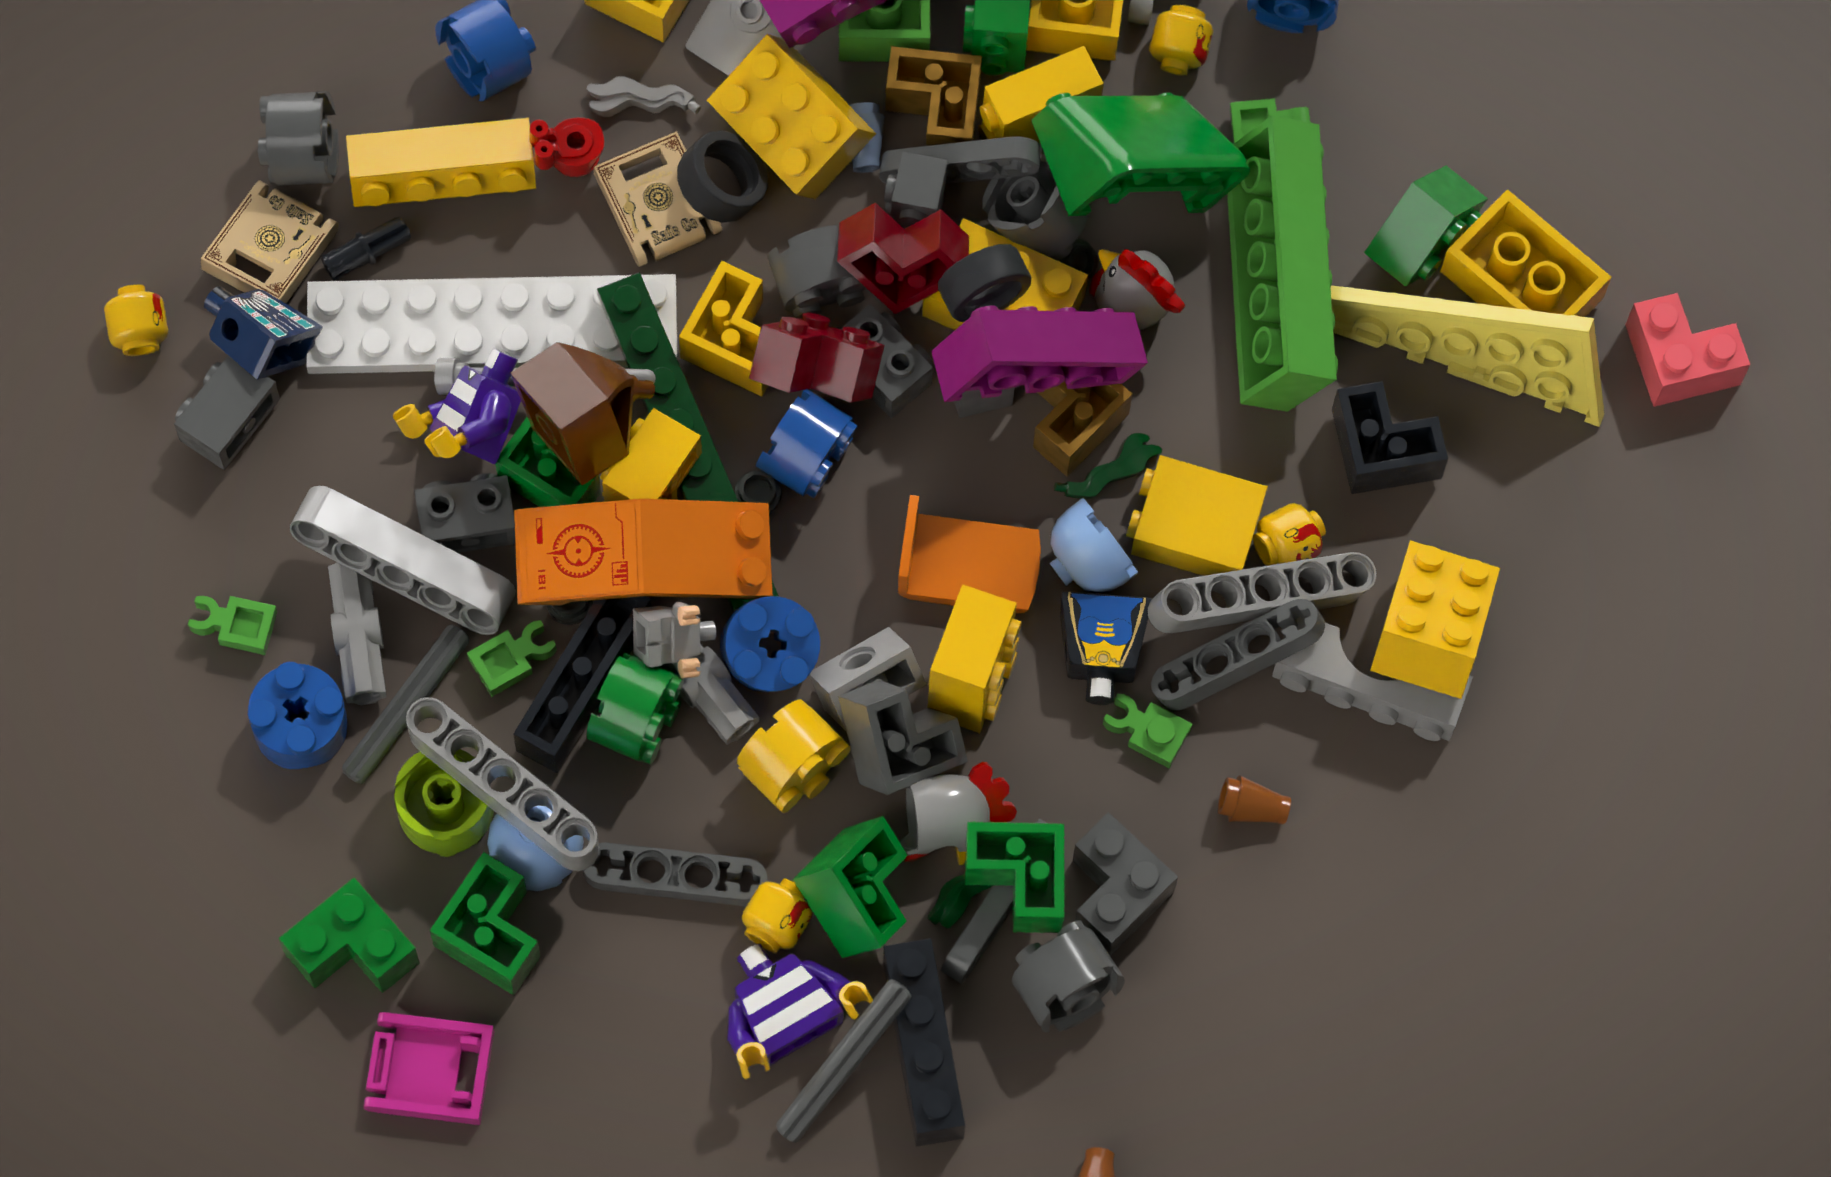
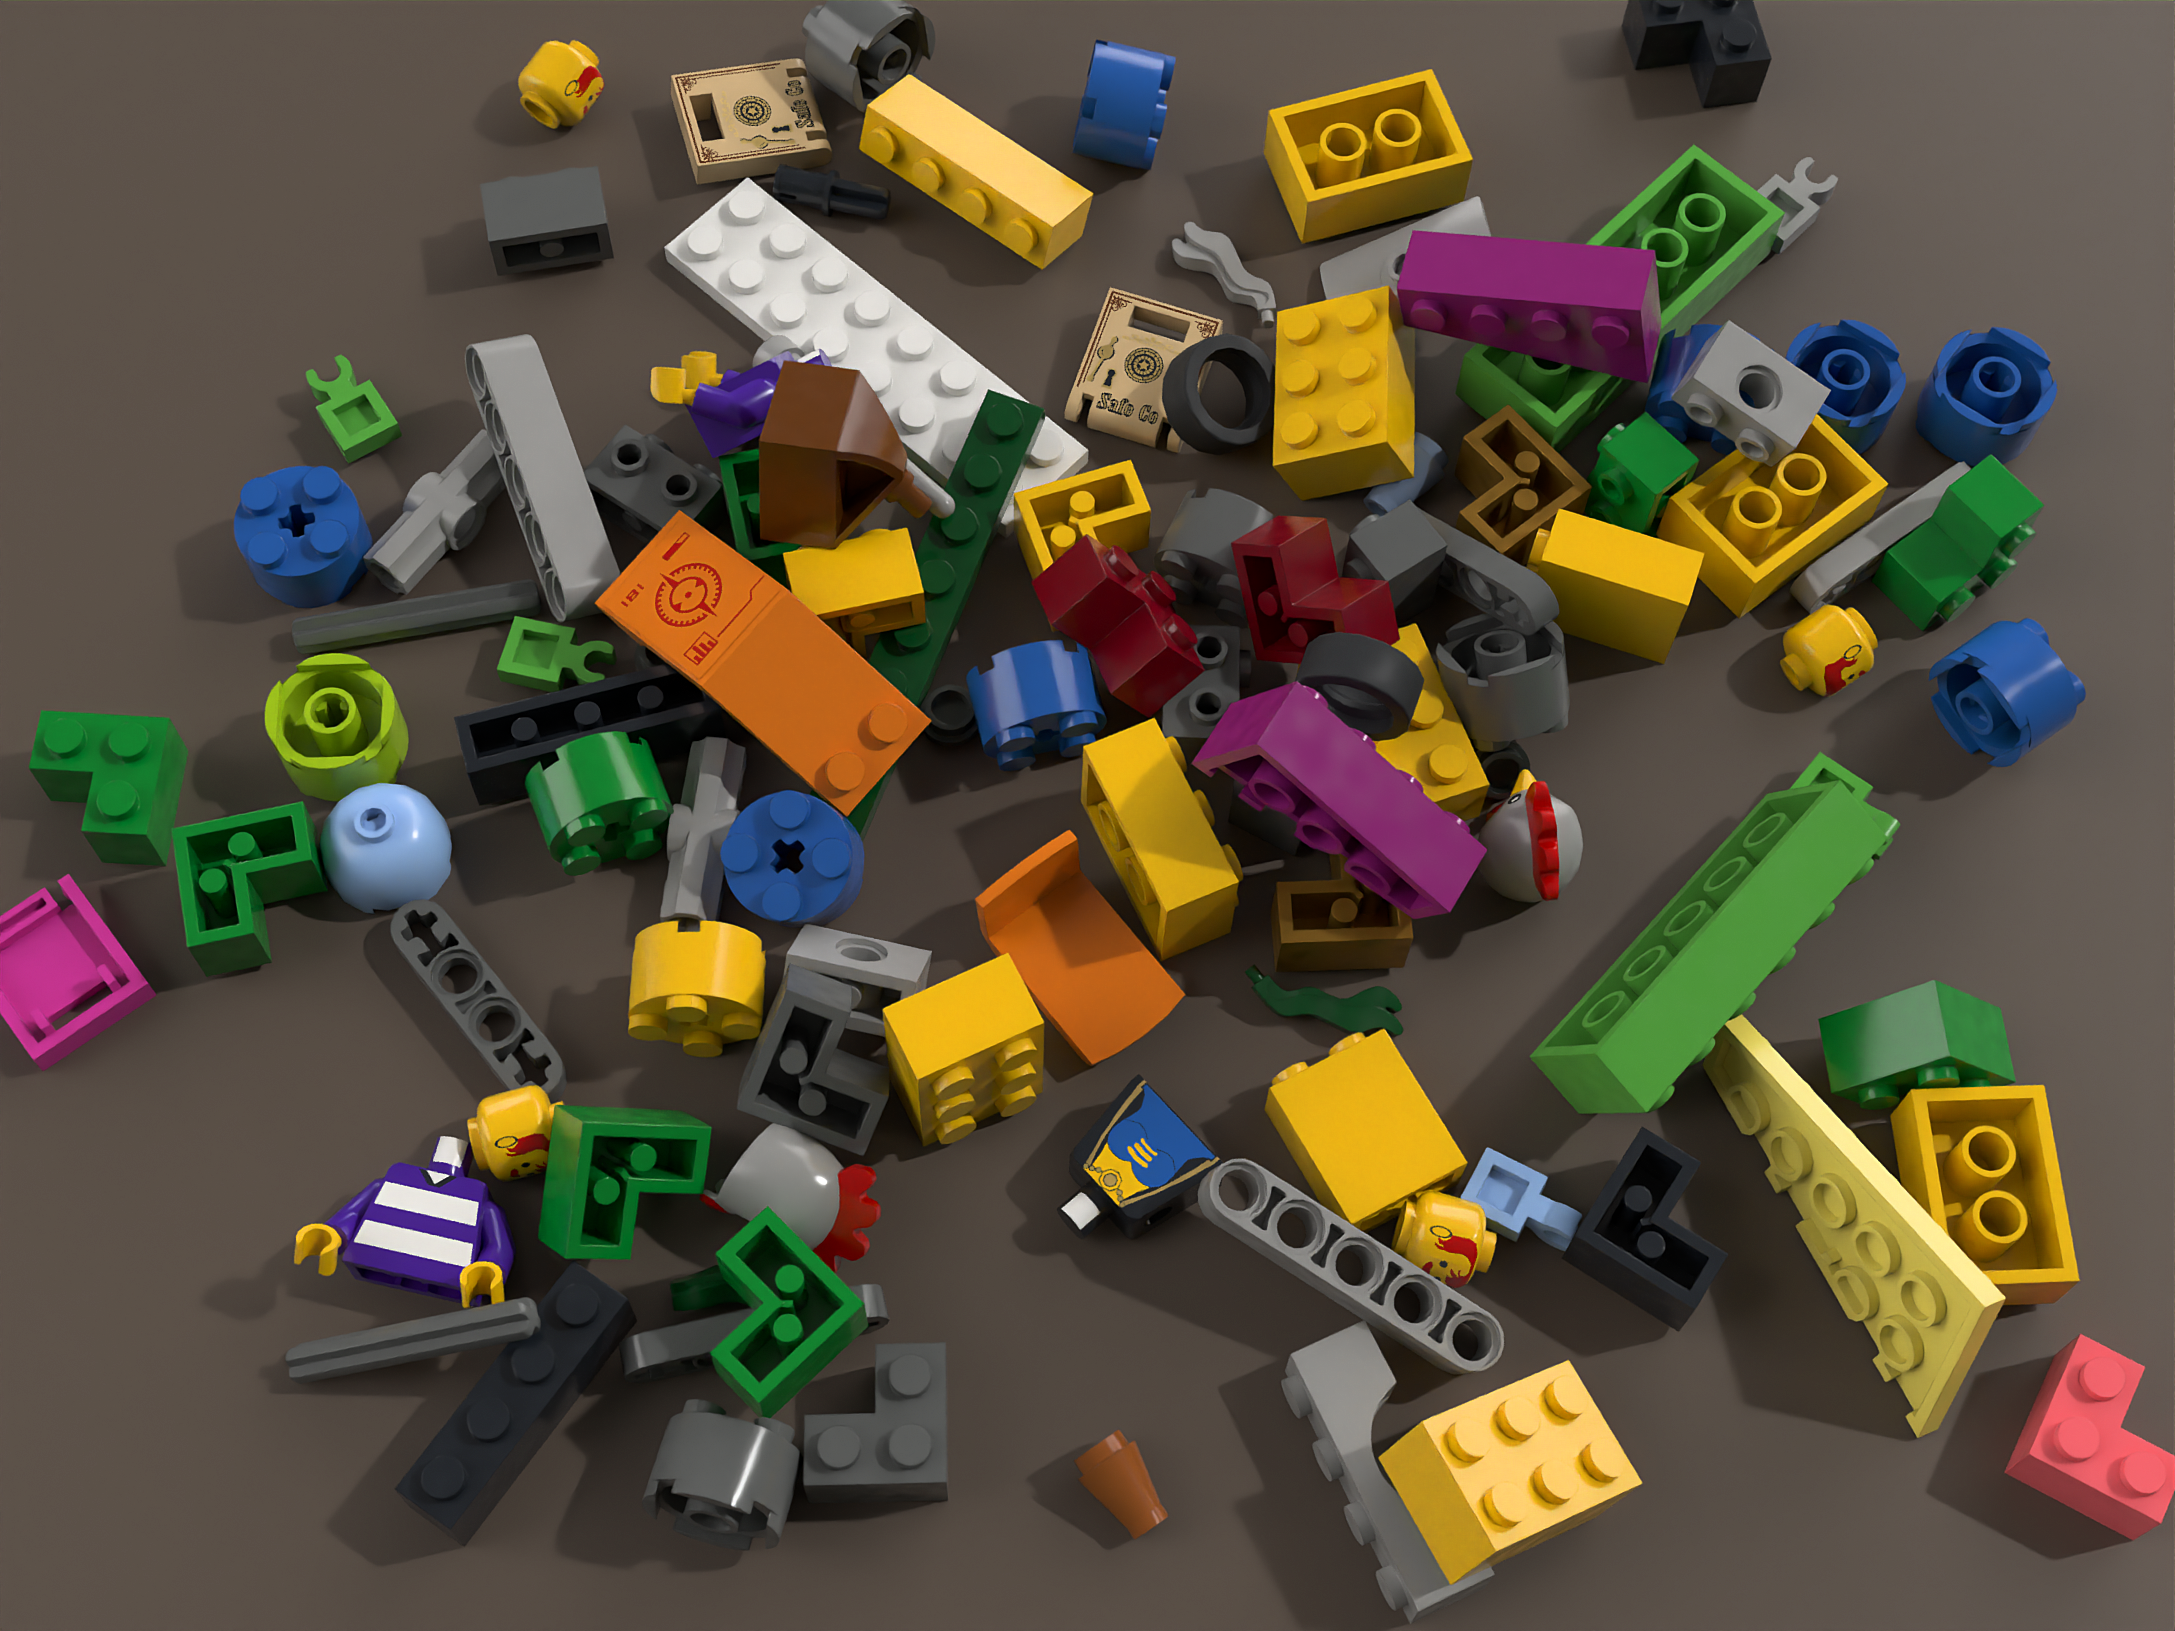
camera: 45 degrees right, 5 degrees down
(260, 331) = (647, 175): dark blue torso -> none
(494, 763) = (383, 775): light grey beam -> none
(571, 146) = (1107, 249): red piece -> none
(671, 636) = (697, 760): light grey piece -> none
(947, 458) = (1160, 838): none -> yellow brick
(1088, 551) = (1211, 1059): light blue cylinder -> none
(1135, 145) = (1665, 695): green windscreen -> none
(1154, 733) = (1098, 1311): bright green plate -> none
(1235, 647) = (1263, 1298): dark grey beam -> none
(1303, 485) = (1514, 1200): none -> light blue plate

